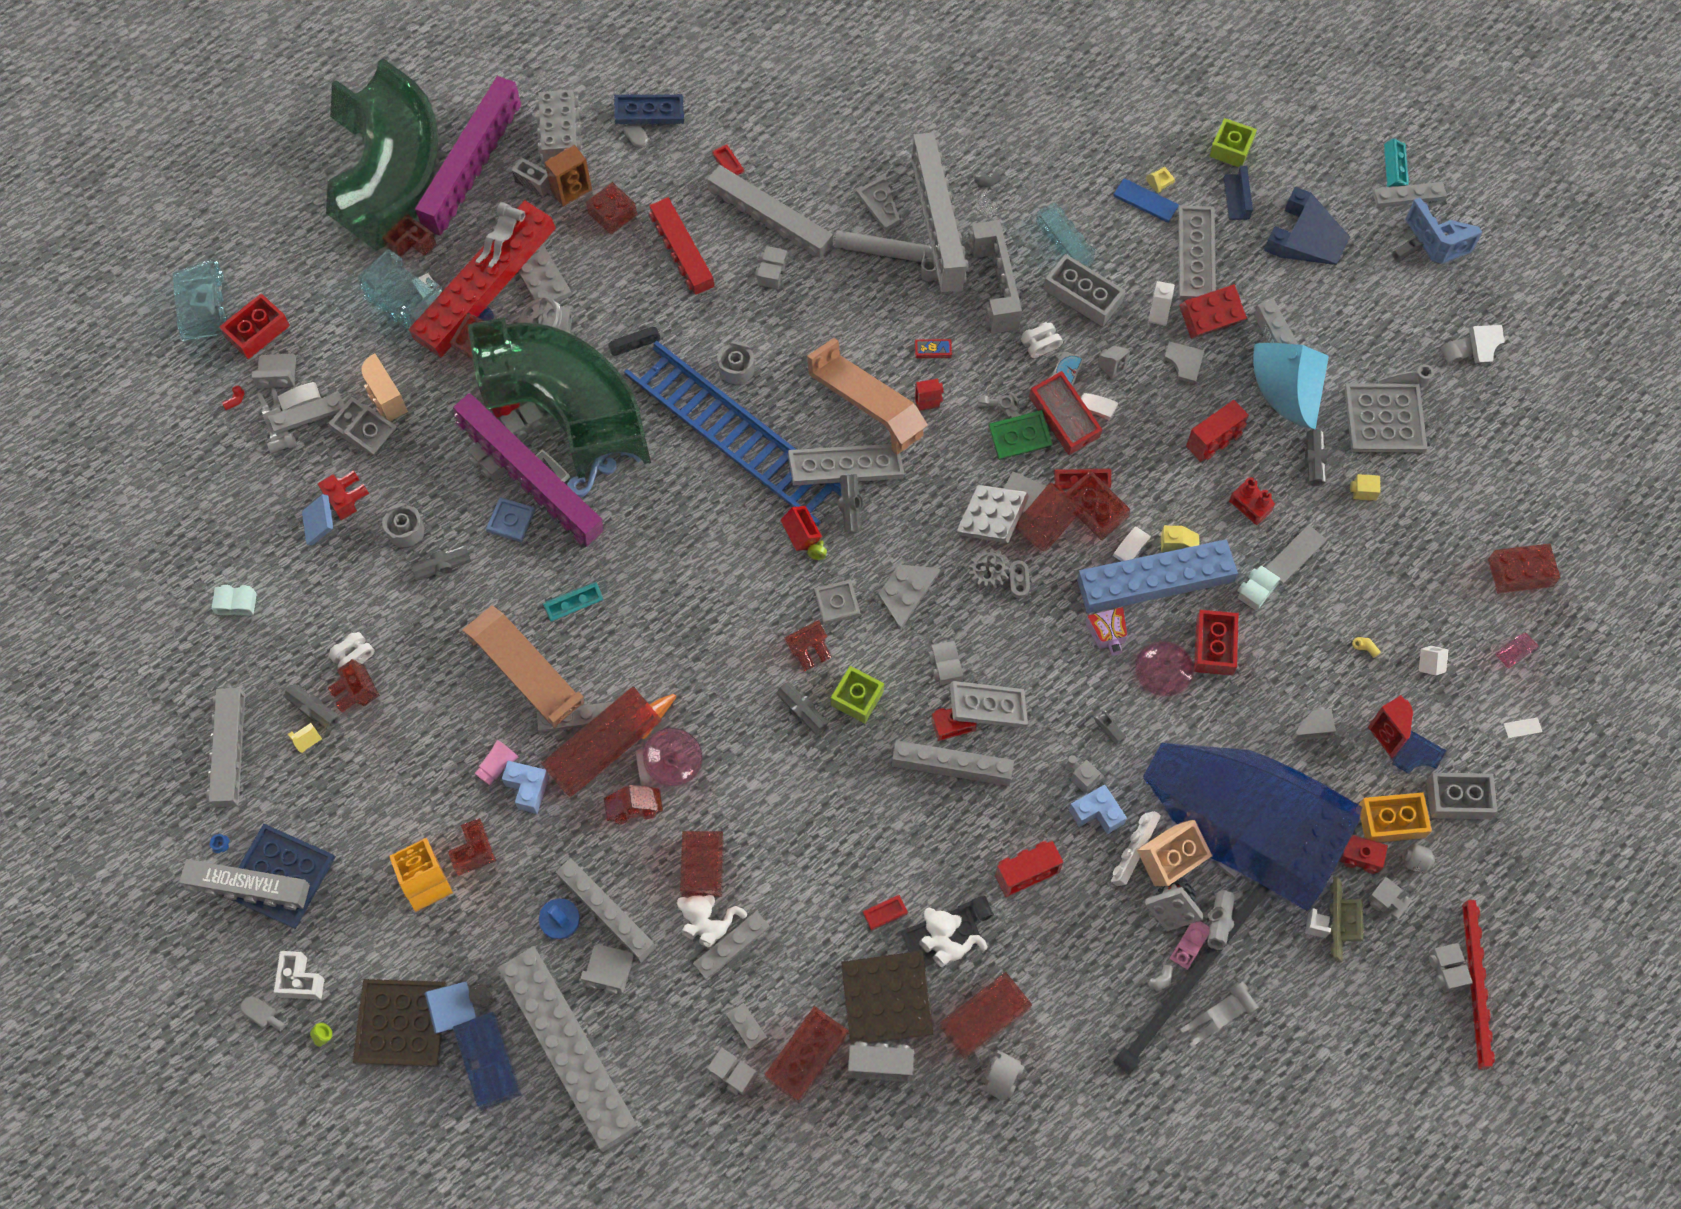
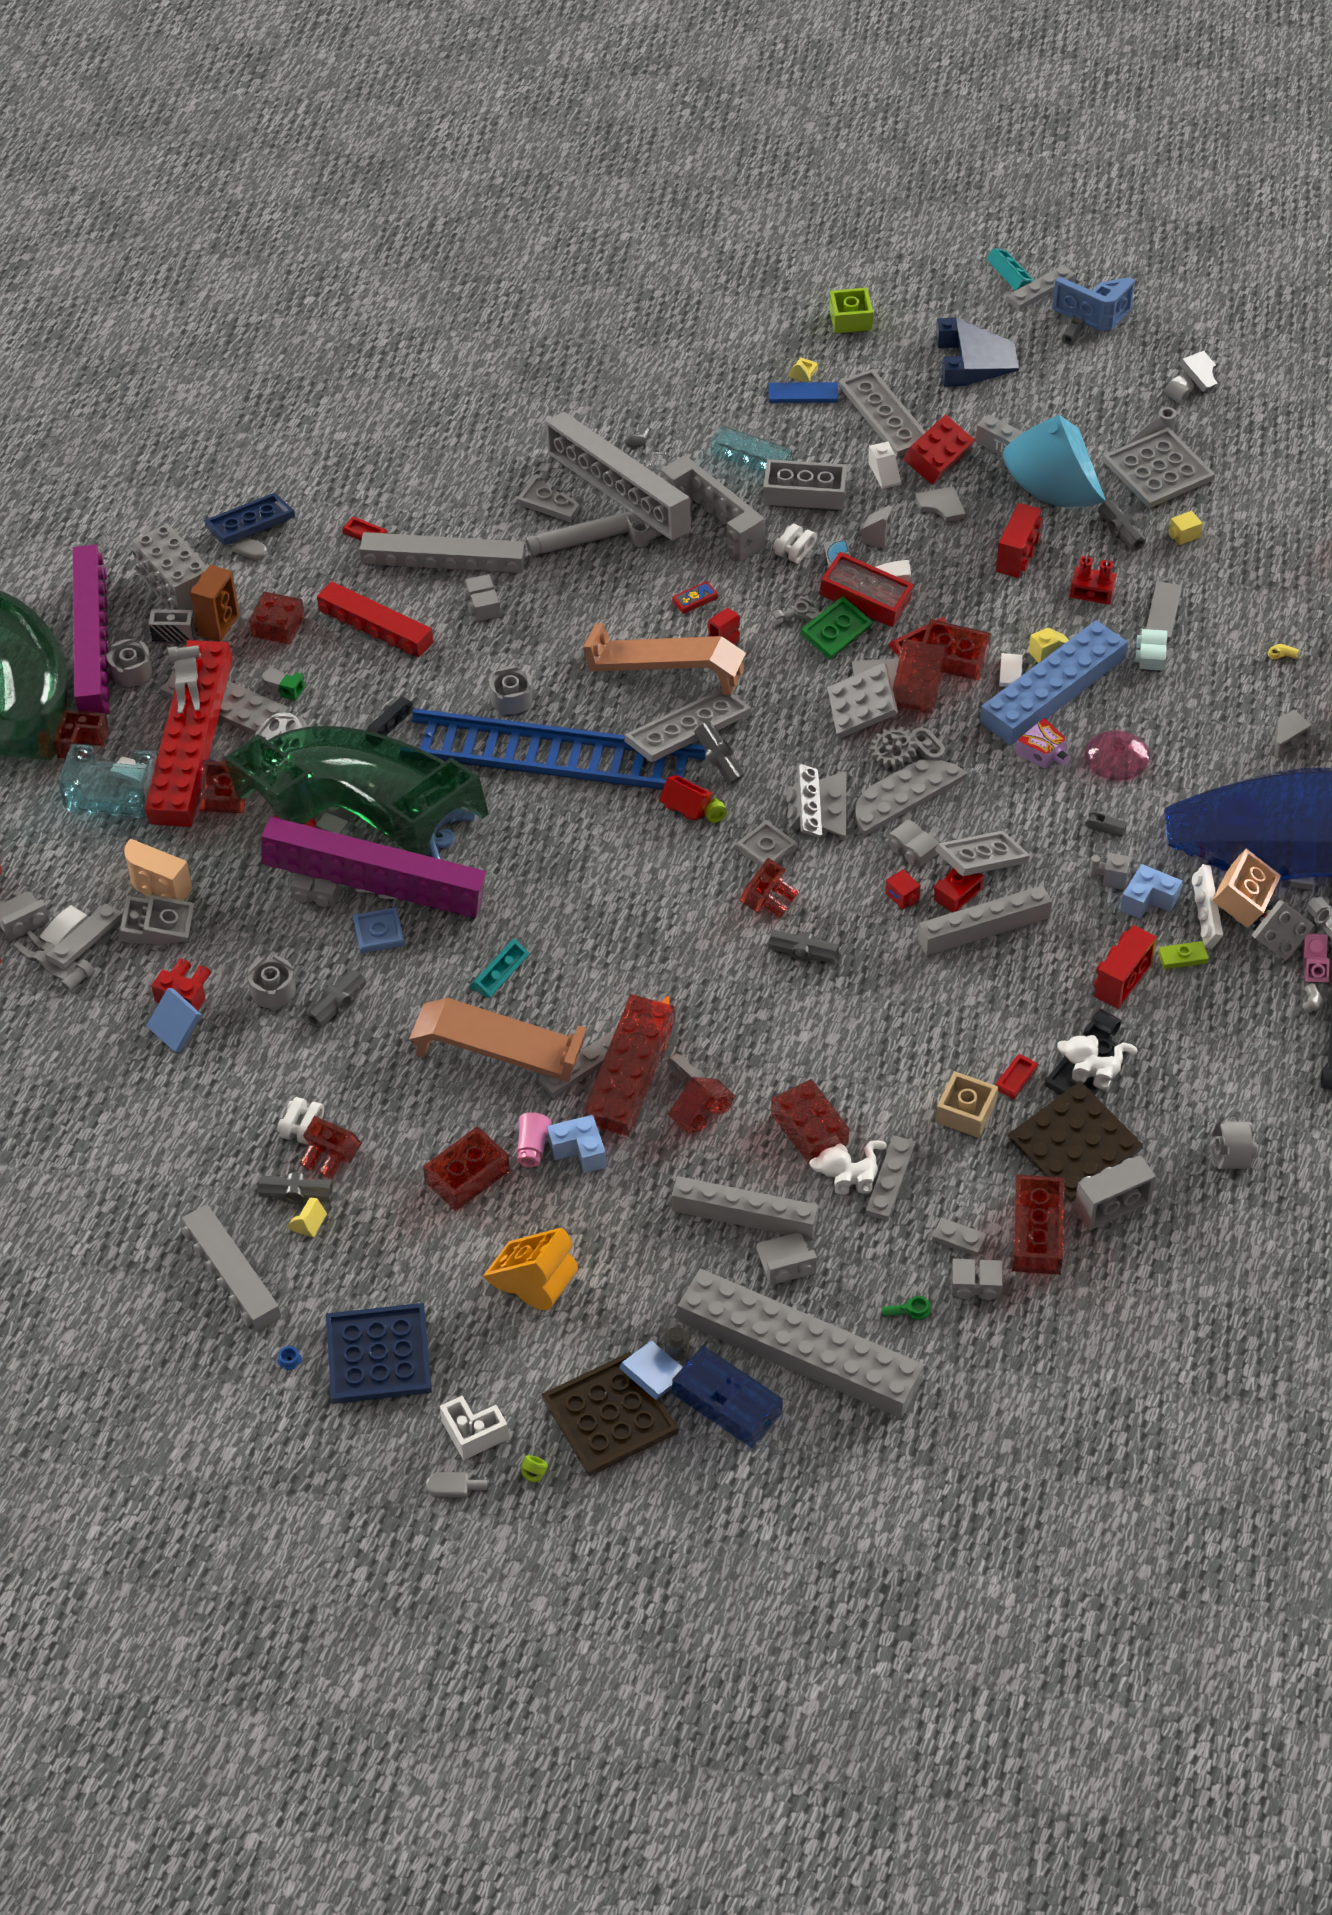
camera: 30 degrees left, 15 degrees down
(234, 600) = (135, 1136): light aqua brick -> none
(244, 884) = (351, 1371): light grey brick -> none
(433, 761) = (466, 1168): none -> clear red brick
(476, 852) = (572, 1215): clear red brick -> none
(482, 195) = (129, 663): none -> light grey brick
(559, 919) = (701, 1243): blue tile -> none
(579, 270) = (283, 684): none -> leg
(674, 745) = (710, 1044): clear pink dish -> none
(674, 1068) = (916, 1308): none -> green plate
(825, 918) = (966, 1104): none -> tan brick
(857, 694) = (850, 907): lime brick -> none
(887, 582) = (805, 802): none -> light grey bracket
(910, 700) = (903, 889): none -> red brick
(973, 611) = (904, 792): none -> light grey plate
(985, 1015) = (1178, 1107): clear red brick -> none
(1088, 879) = (1183, 955): none -> lime plate
(1216, 642) = (1150, 707): red brick -> none
(1238, 195) = (887, 350): dark blue panel -> none

